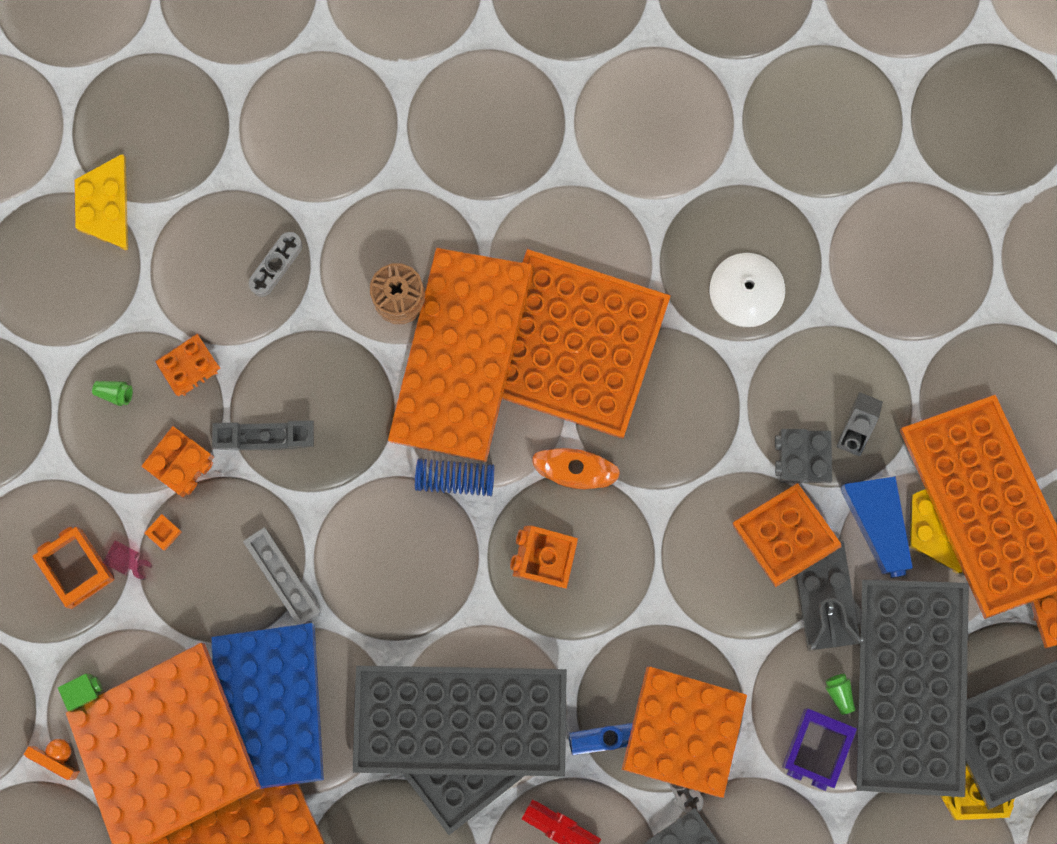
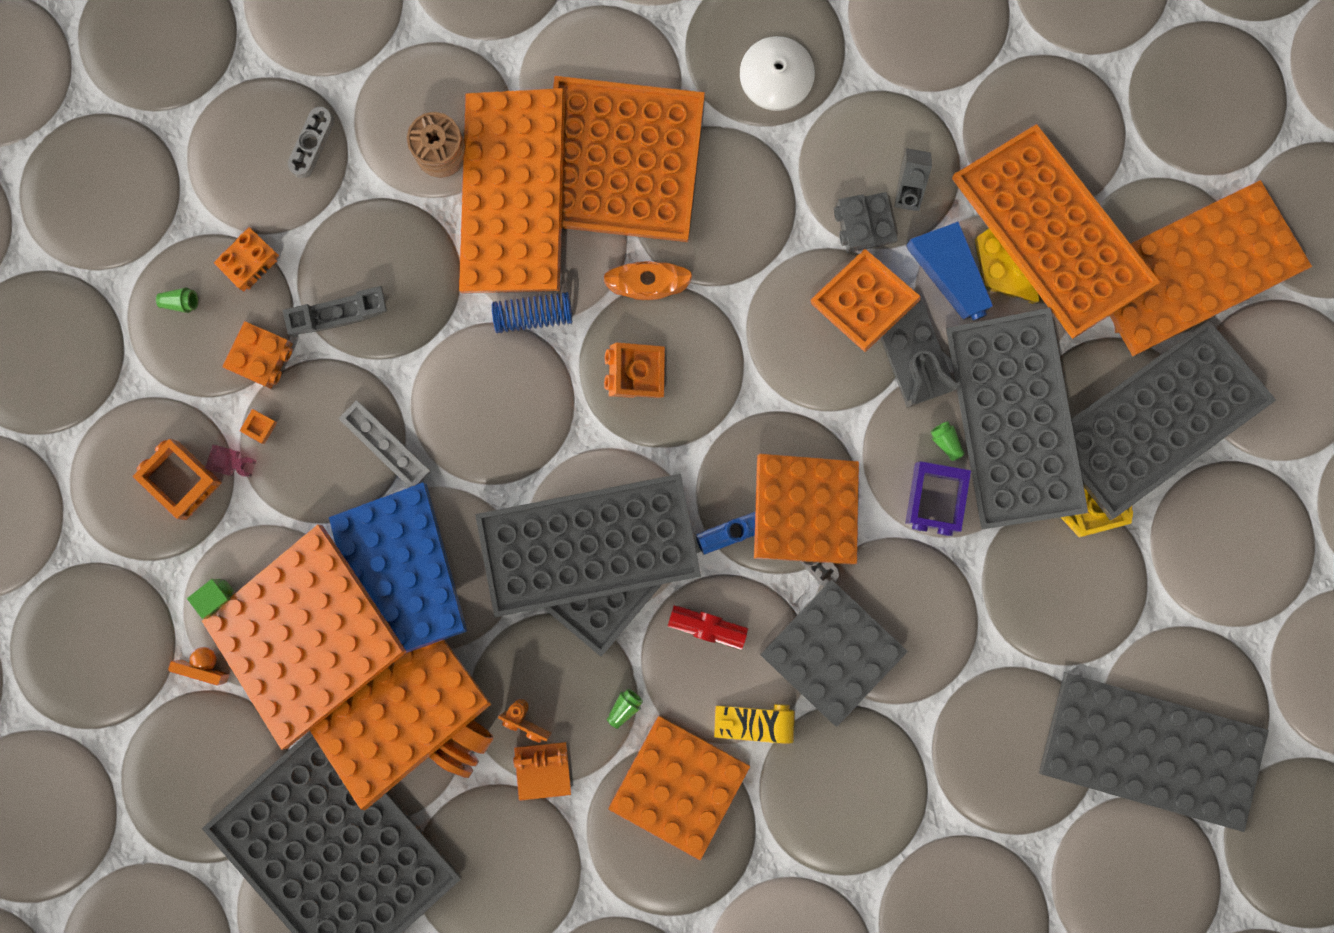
camera: 20 degrees left, 5 degrees up
(103, 203) = (126, 116): yellow wing -> none

